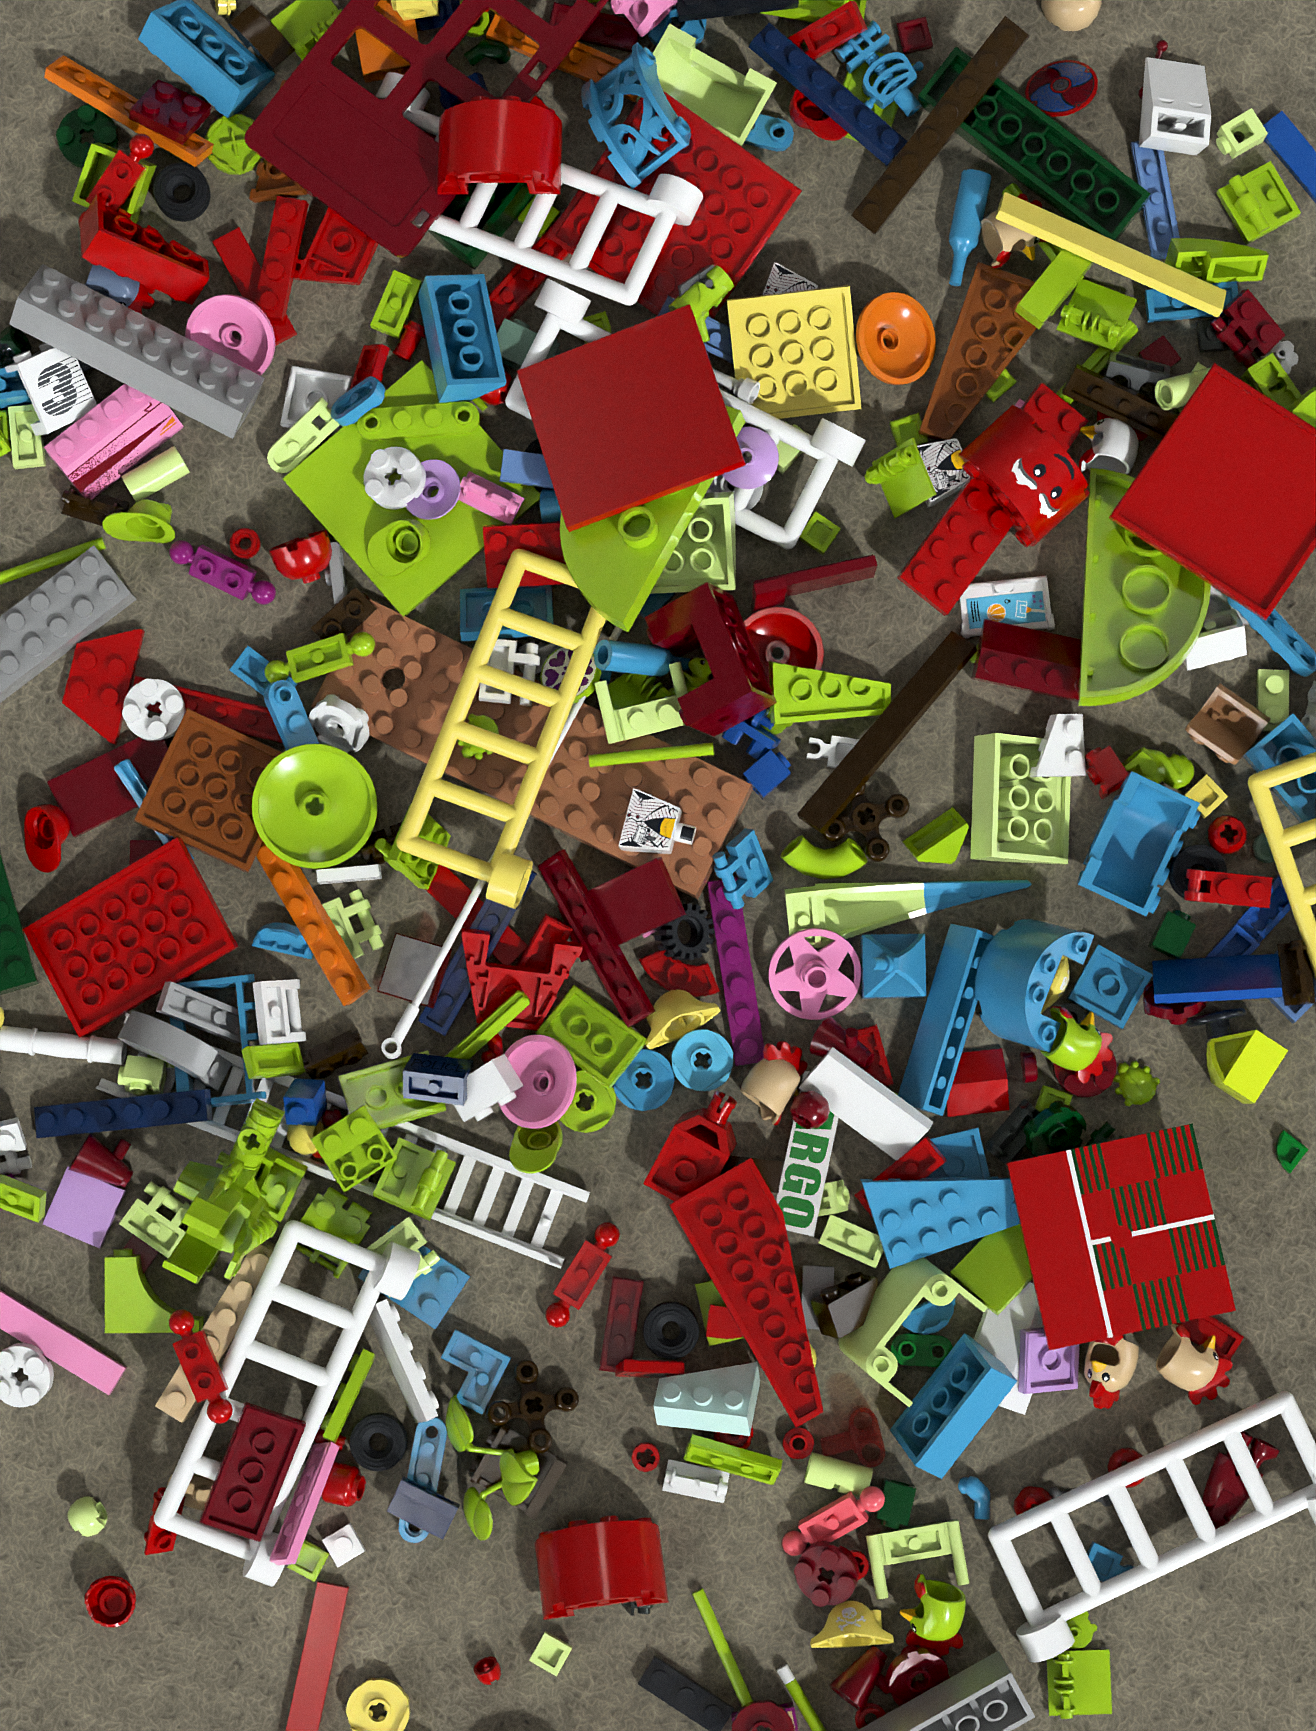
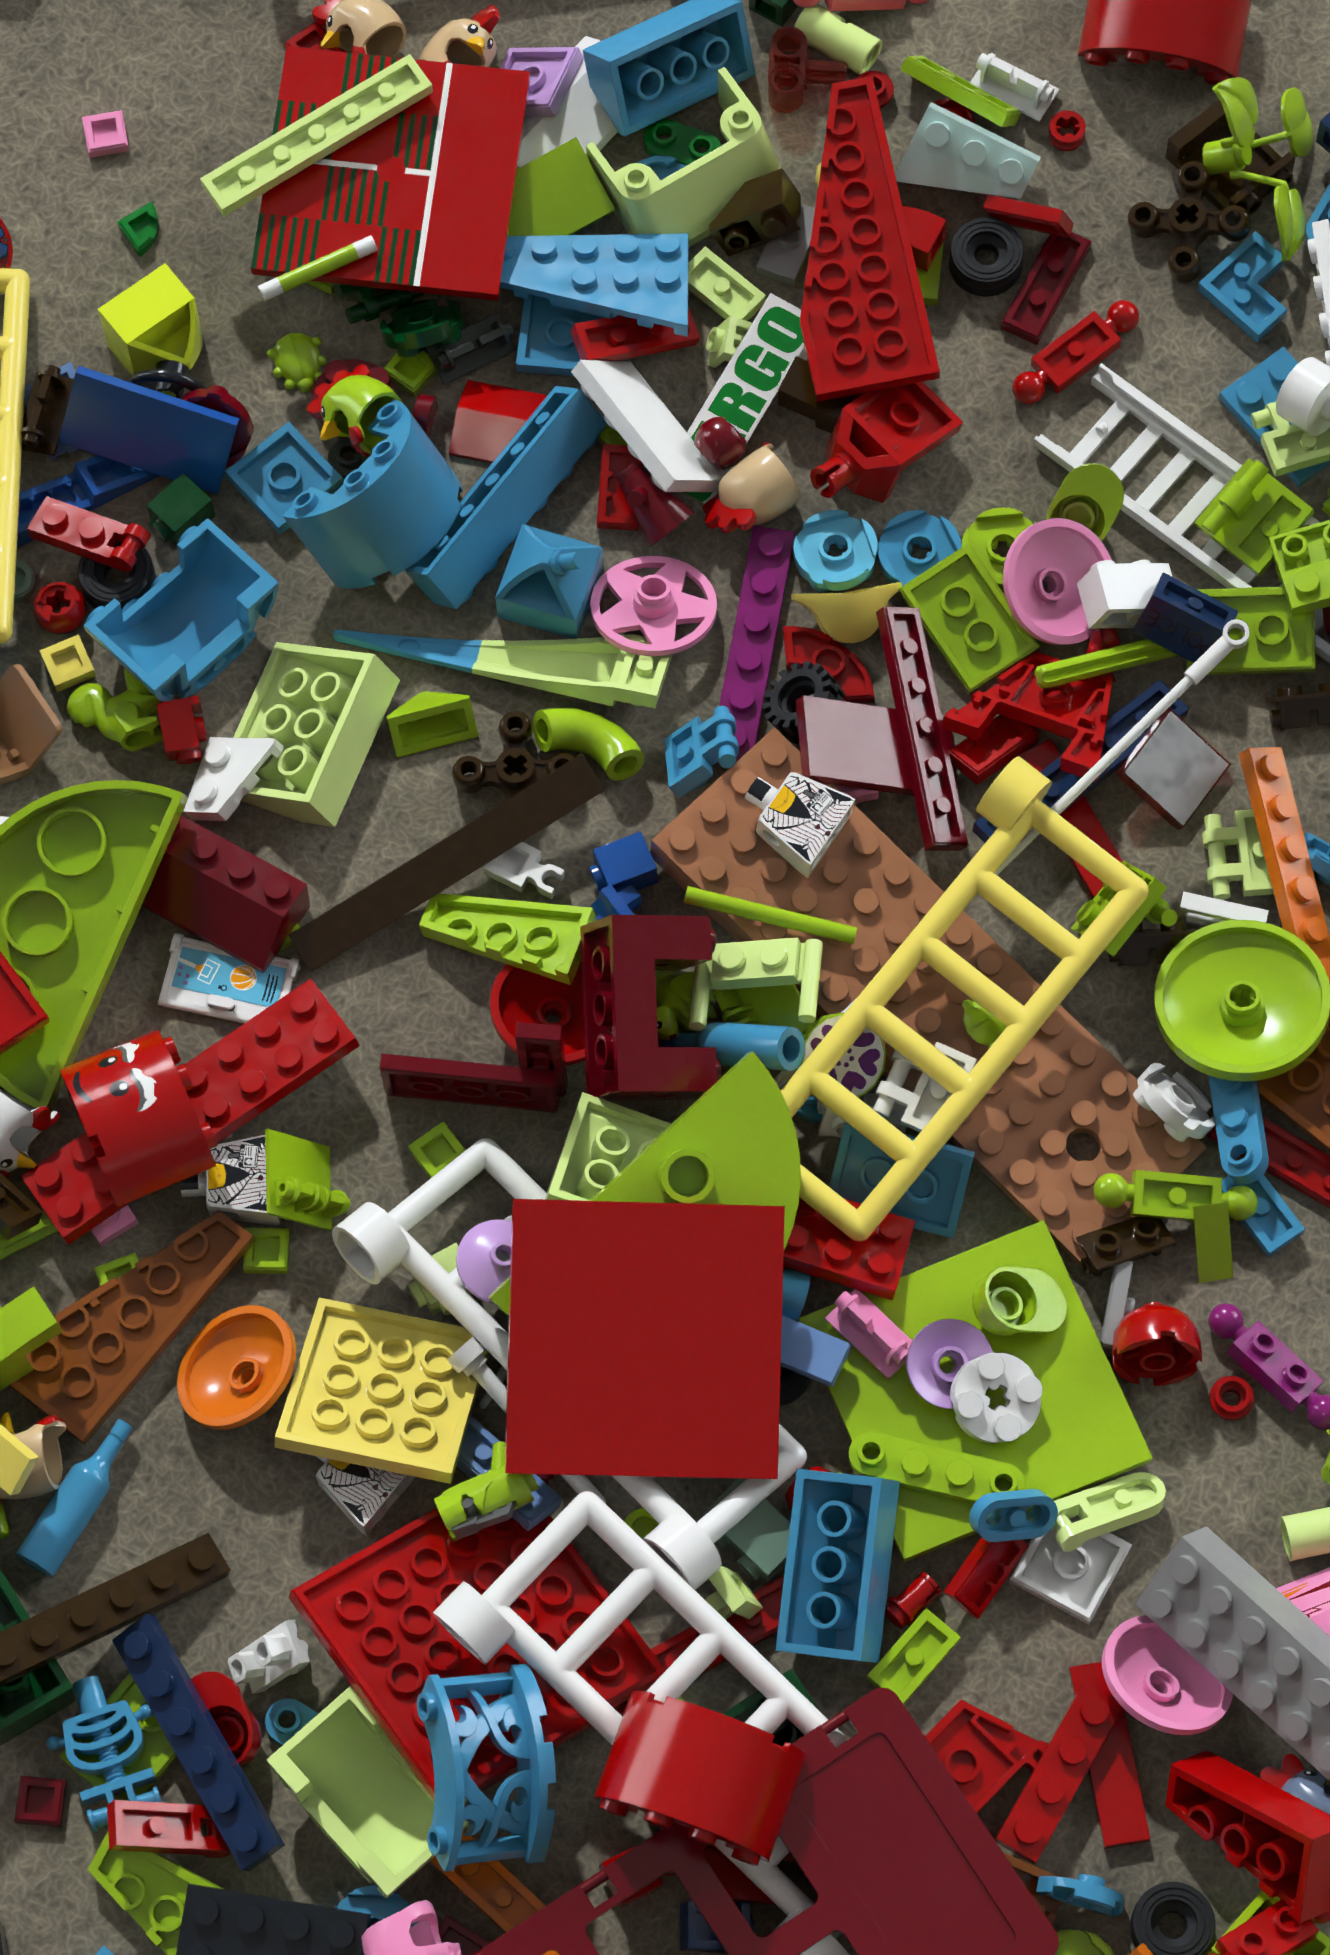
camera: 160 degrees left, 15 degrees down
(239, 189) = (1085, 1892): none -> dark azure plate
(286, 639) = (1213, 1242): none -> lime sticker
(522, 298) = (732, 1595): none -> yellowish green tile
(803, 163) = (270, 1658): none -> white hips
(1143, 1136) = (317, 268): none -> lime bar
(1183, 1239) = (316, 135): none -> yellowish green plate

